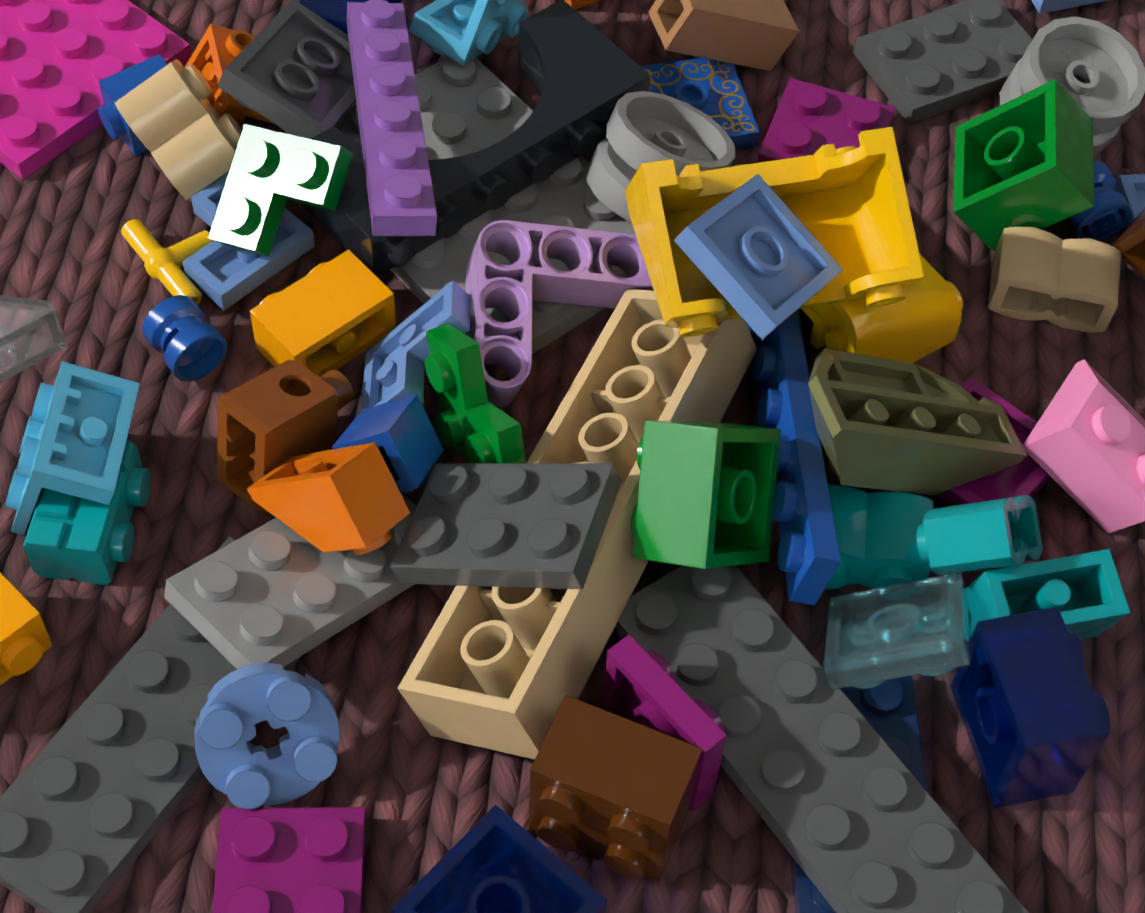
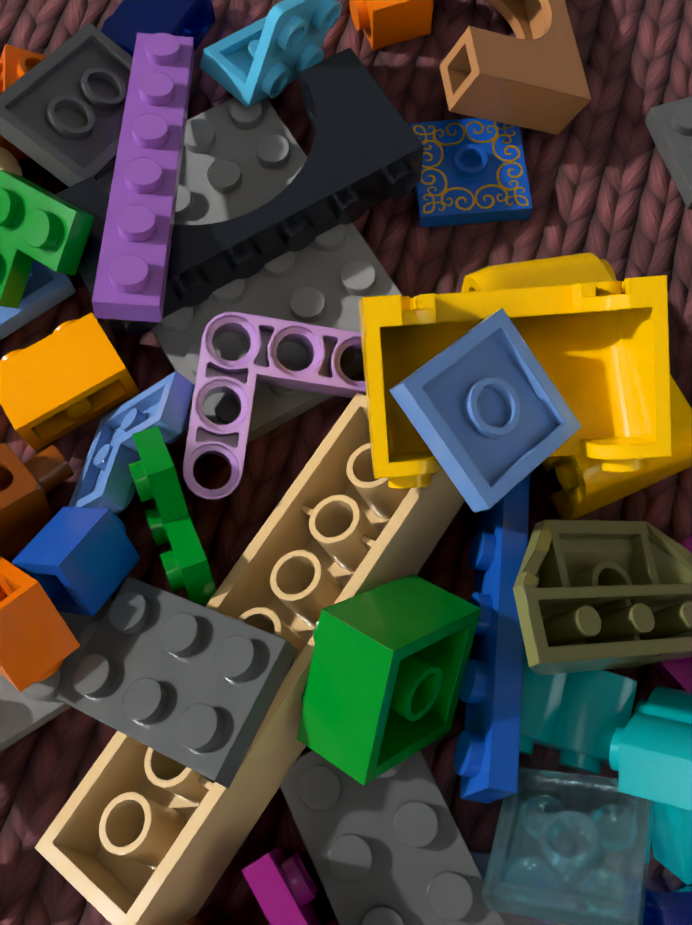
camera: 15 degrees right, 15 degrees up
(653, 129) = (419, 234): light grey wheel -> none
(818, 117) = (600, 213): magenta plate -> none

